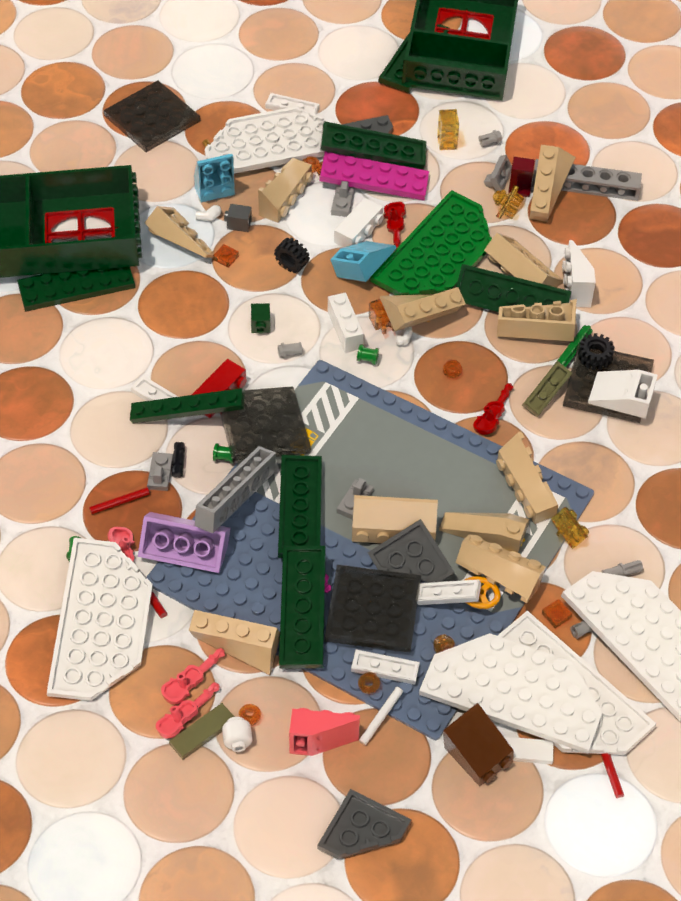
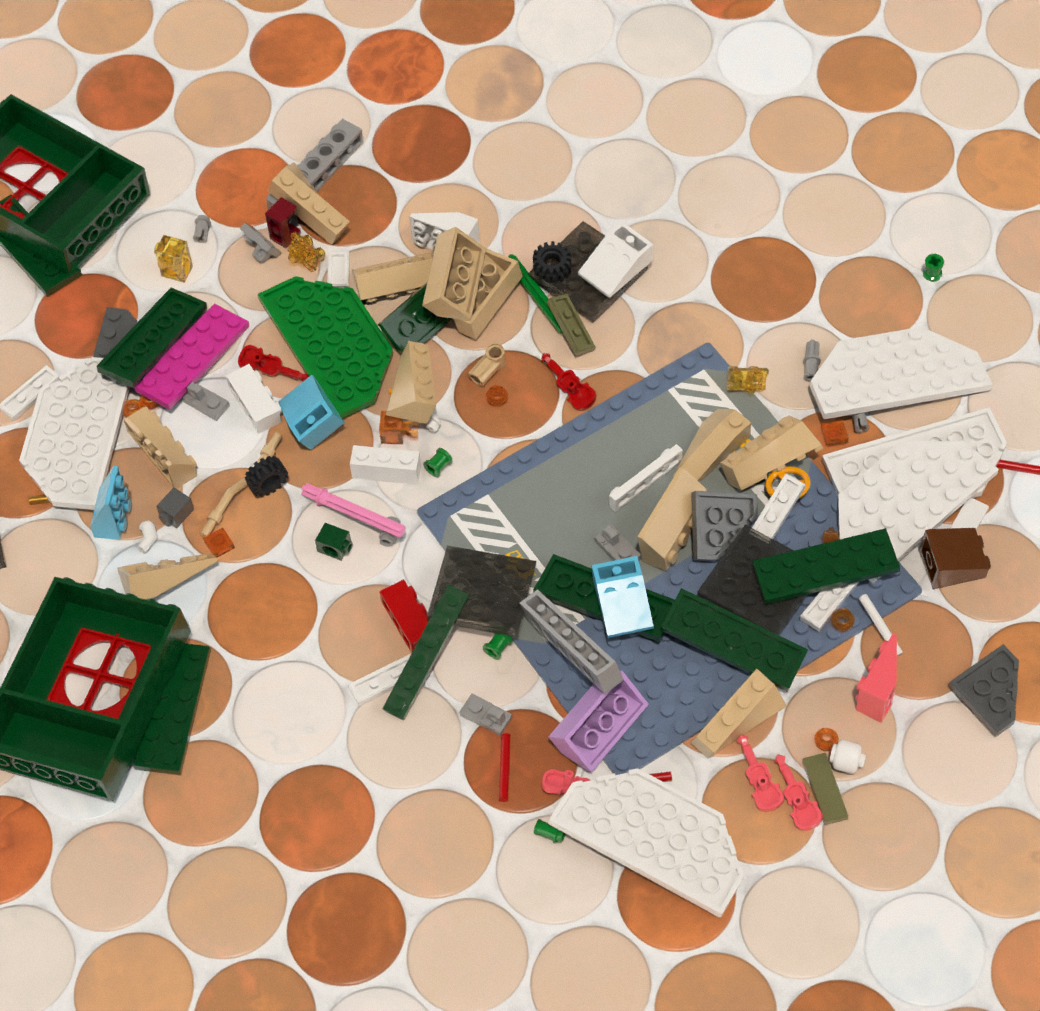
camera: 60 degrees left, 5 degrees up
(178, 459) = (480, 690): black axle -> none
(245, 244) = (216, 515): none -> tan bar
(296, 298) = (353, 510): none -> bright pink axle
(297, 509) = (622, 596): none -> slope
(409, 647) = (825, 566): none -> dark green plate
(424, 490) = (667, 461): none -> white plate
(482, 351) = (487, 365): none -> tan piece
(511, 228) = (338, 269): none -> white tile
(526, 480) = (677, 388): tan wedge -> none
(531, 288) = (454, 275): none -> tan slope

